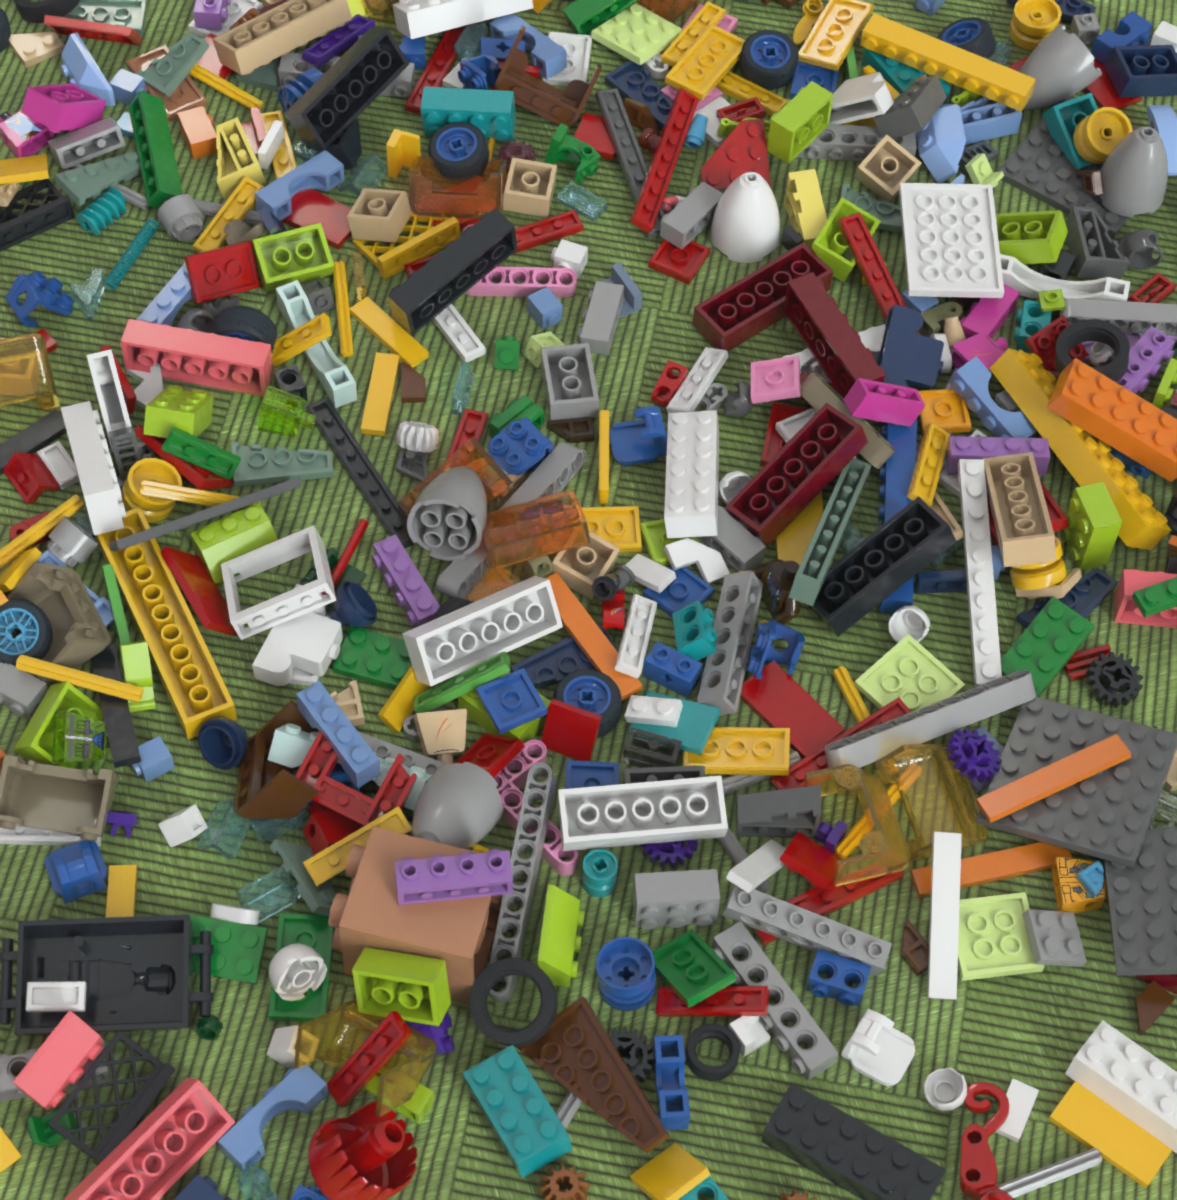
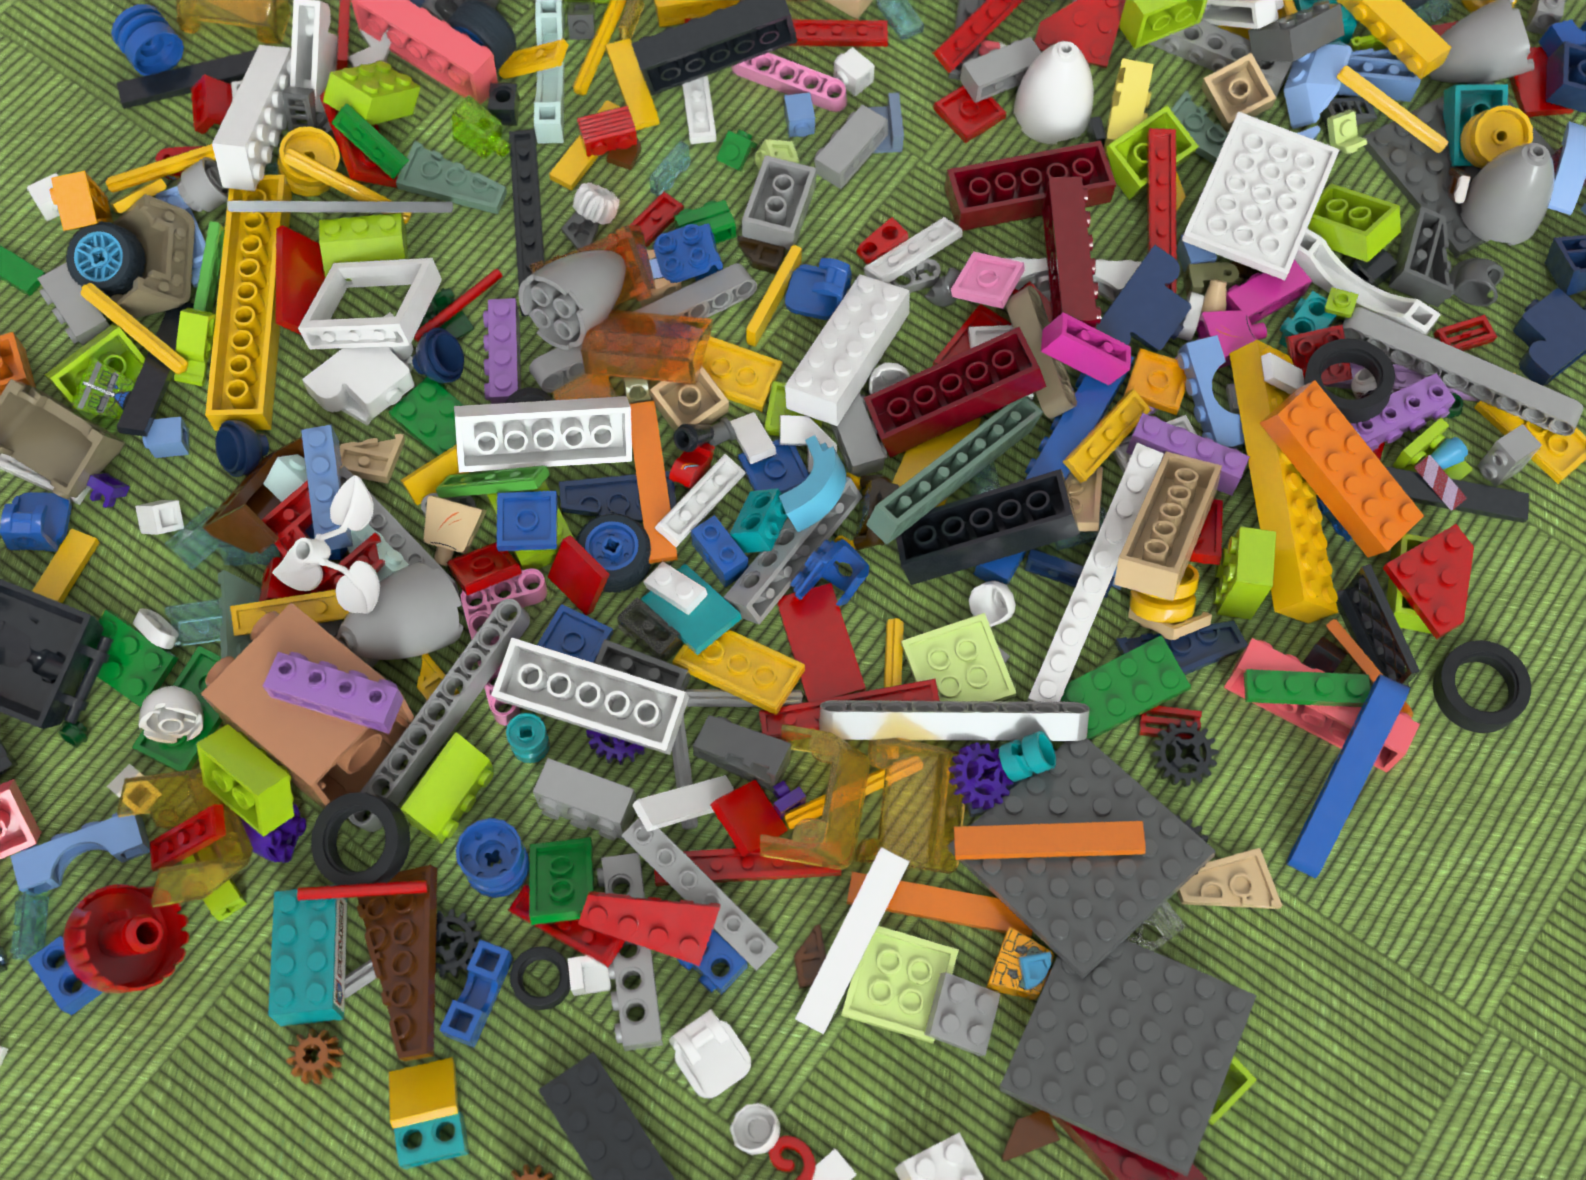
camera: 25 degrees right, 10 degrees up
(394, 375) = (607, 131): none -> red brick
(418, 795) = (301, 567): none -> white plant
(540, 1036) = (362, 890): none -> red bar
(734, 590) = (820, 490): none -> medium azure arch
(790, 962) = (653, 923): none -> wing
(1002, 725) = (1027, 756): none -> teal wheel
(1012, 141) = (1392, 109): none -> yellow axle
(1041, 367) = (1281, 373): none -> white tile

